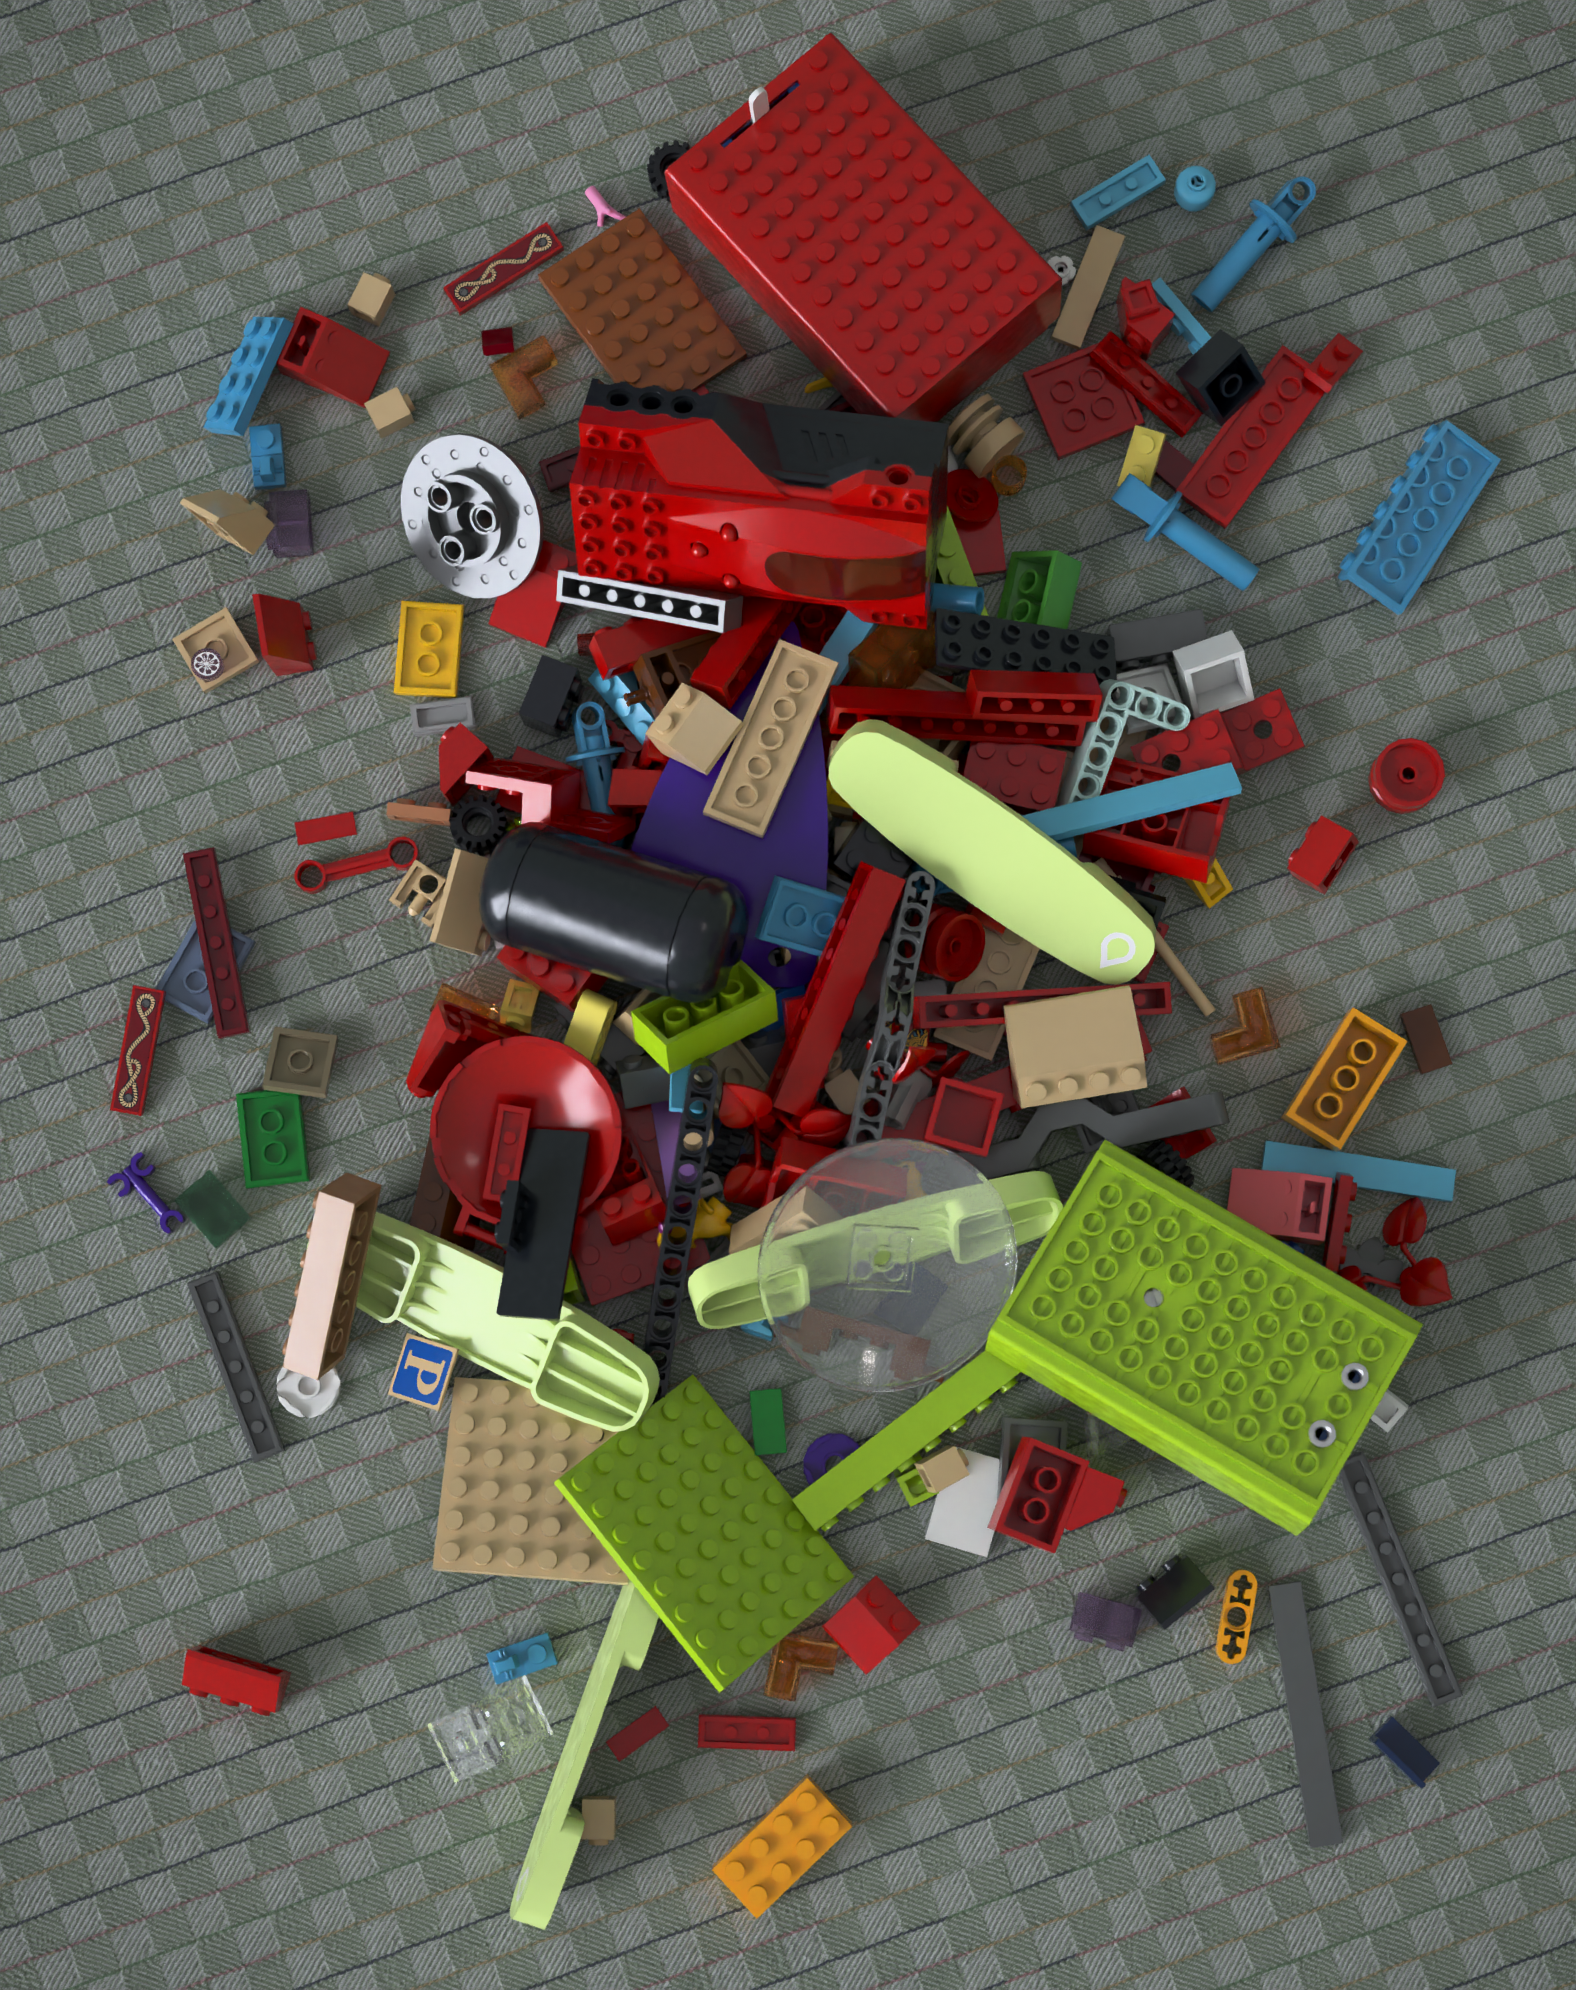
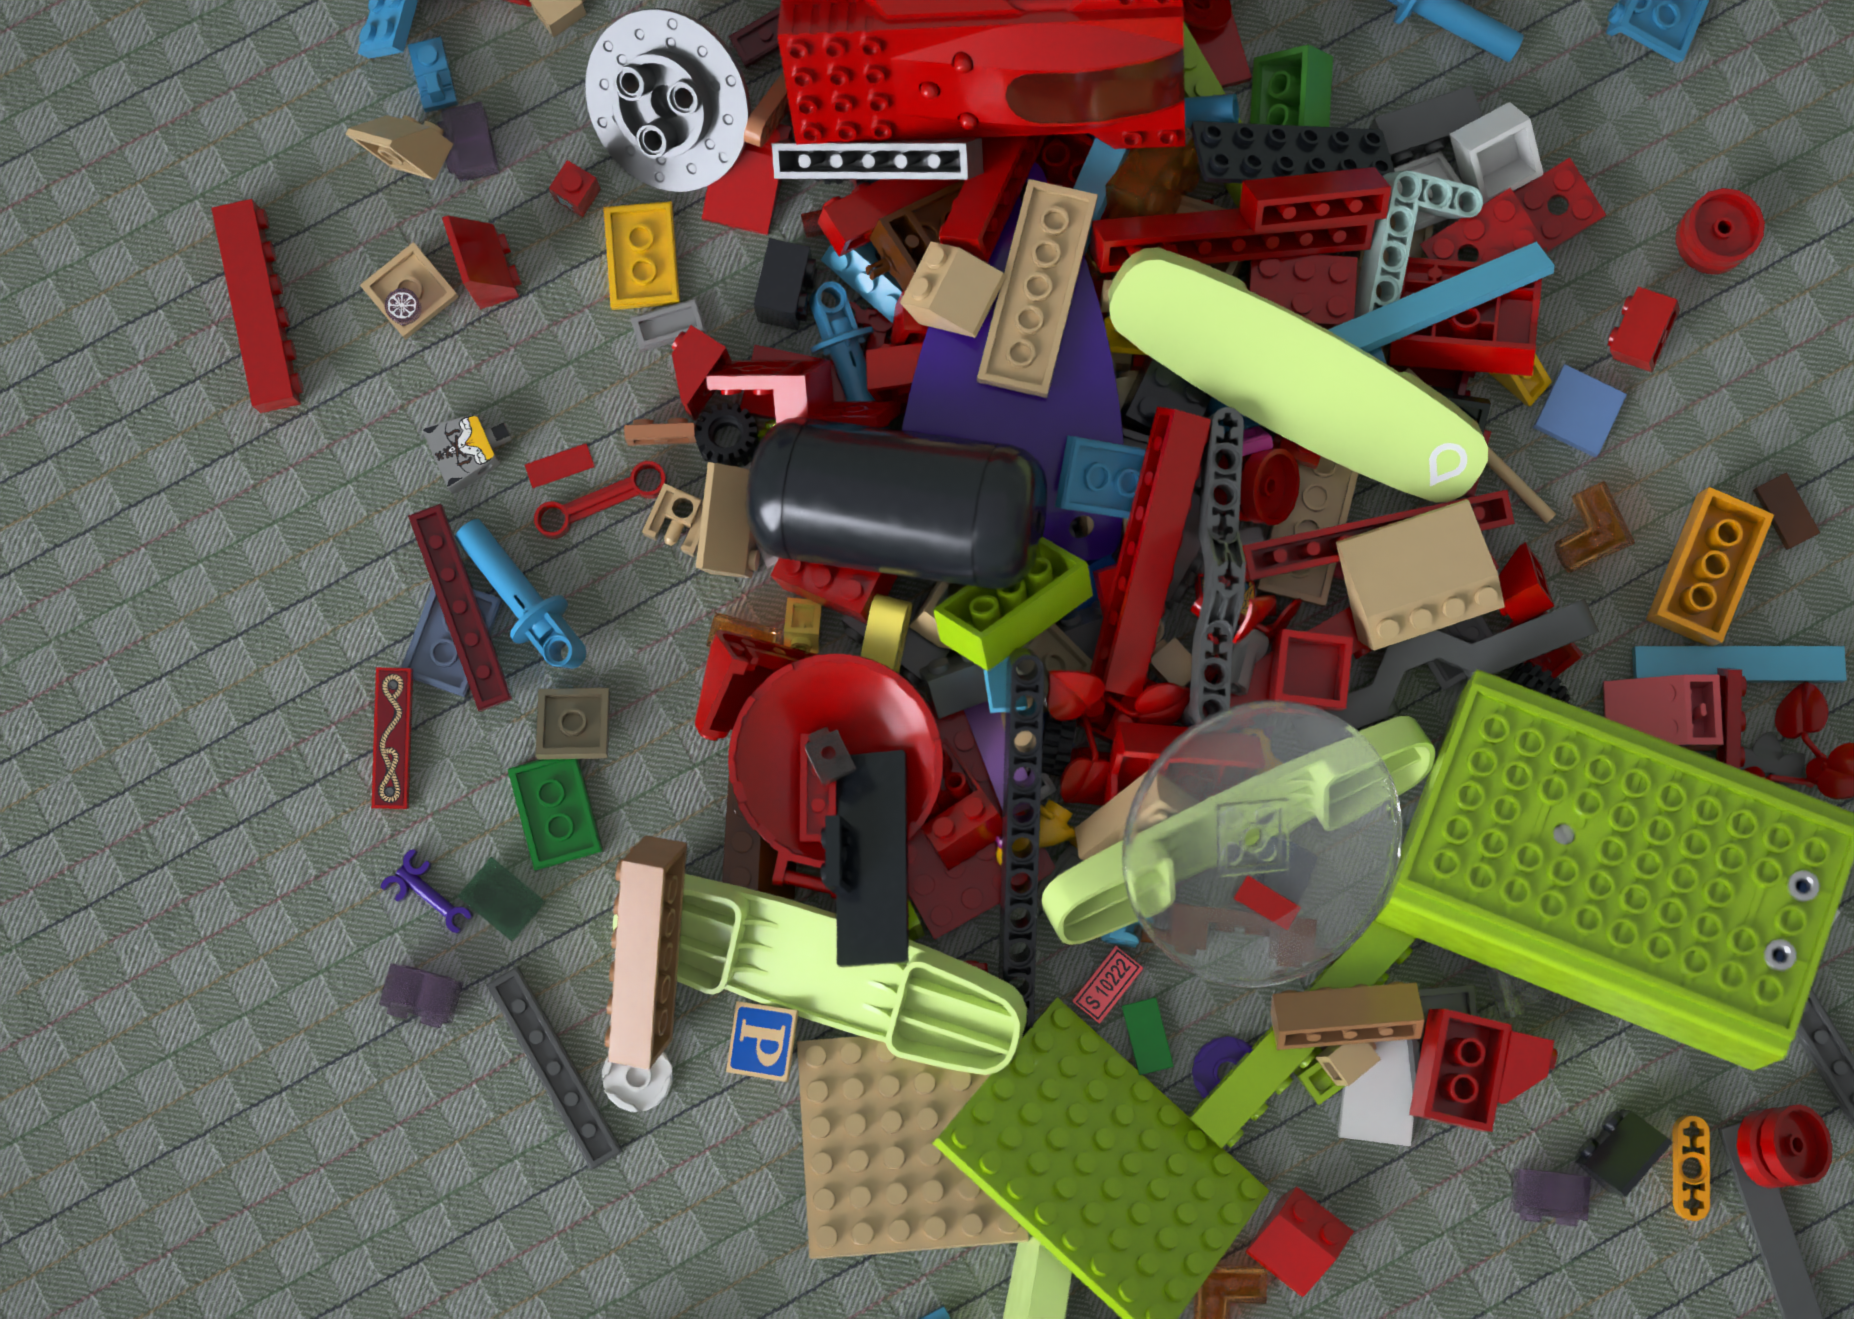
camera: 15 degrees left, 0 degrees up
(77, 643) = (256, 305): none -> red brick
(128, 1282) = (421, 994): none -> clear purple brick
(243, 801) = (465, 449): none -> torso
(283, 964) = (538, 618): none -> dark azure piece
(378, 580) = (574, 188): none -> red brick
(522, 1139) = (835, 768): none -> clear smoke brick
(555, 546) = (767, 114): none -> nougat beam
(740, 1370) = (1107, 984): none -> coral tile
(884, 1315) = (1263, 899): none -> red sticker
(944, 1430) = (1346, 1015): none -> medium nougat brick
(945, 903) = (1256, 440): none -> dark pink tile
(1171, 1071) = (1524, 586): none -> red slope
(1253, 919) = (1579, 410): none -> medium blue tile
(1319, 1609) = (1784, 1146): none -> red wheel

